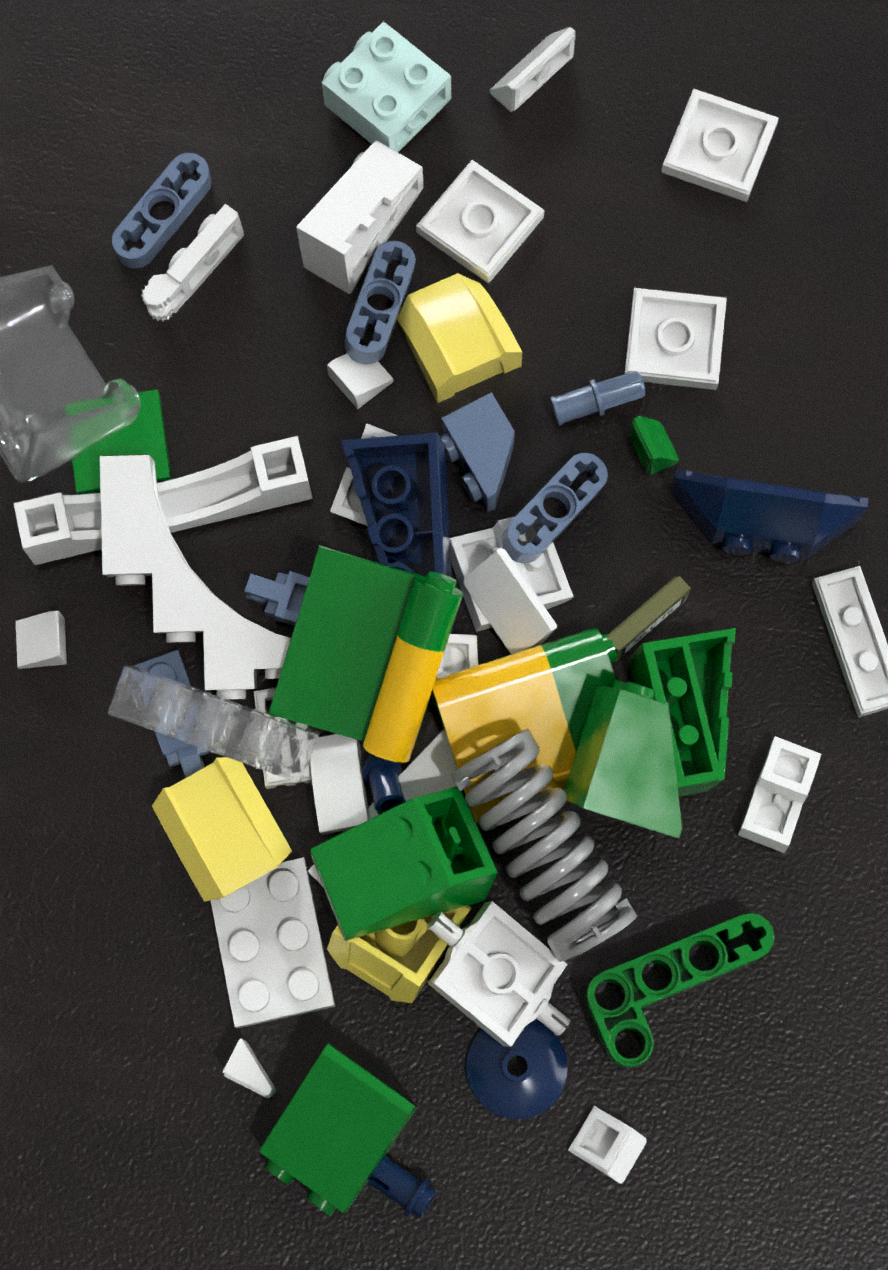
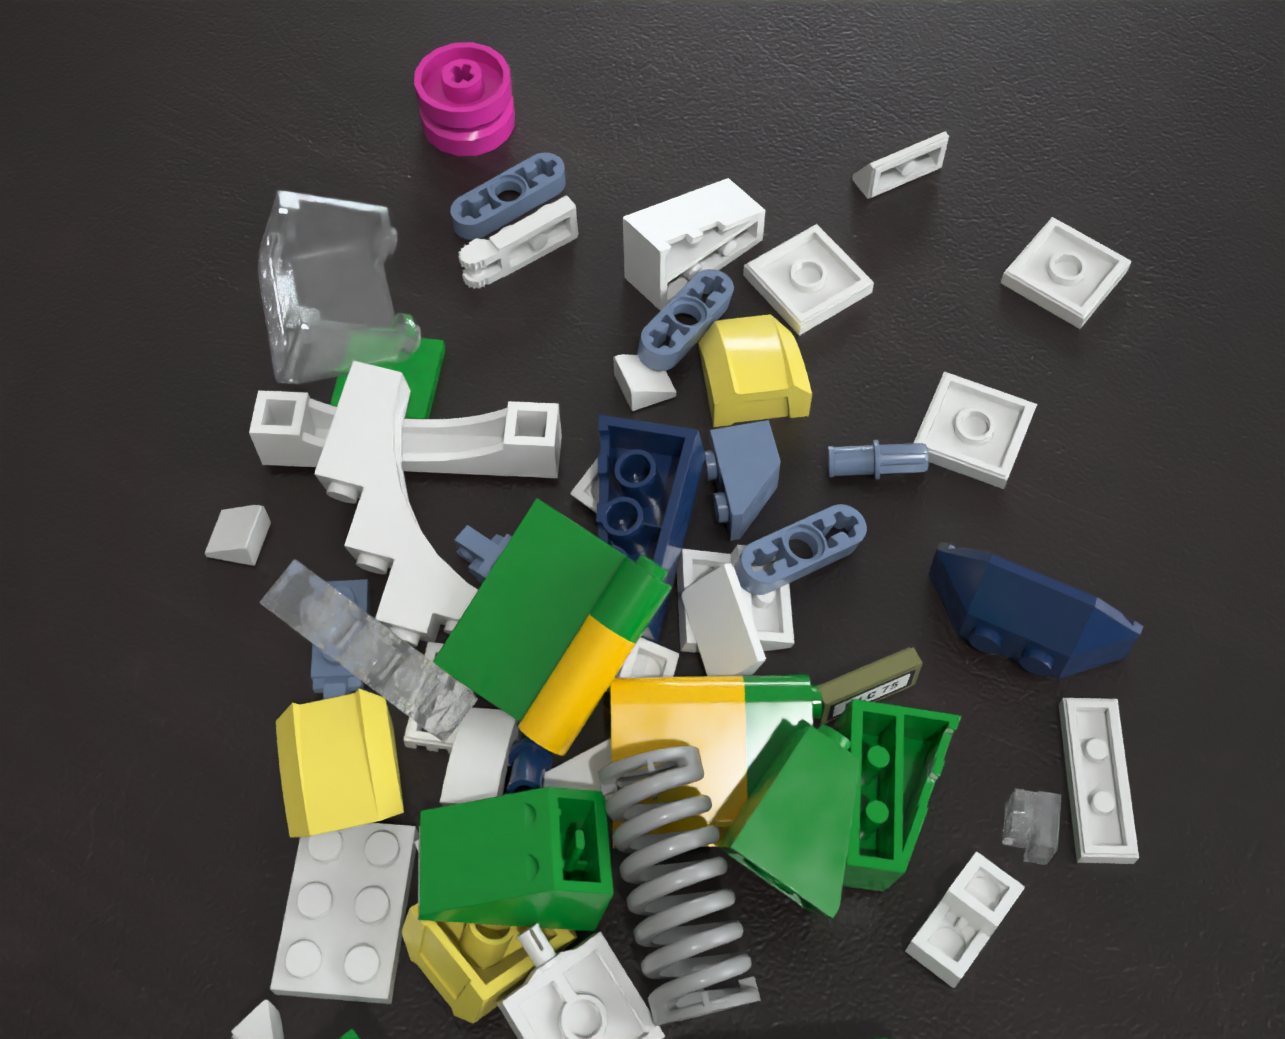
camera: 15 degrees right, 15 degrees down
(82, 114) = (465, 98): none -> dark pink wheel
(386, 88) = (754, 143): light aqua brick -> none
(652, 445) = (920, 518): green slope -> none
(815, 698) = (1033, 824): none -> clear piece

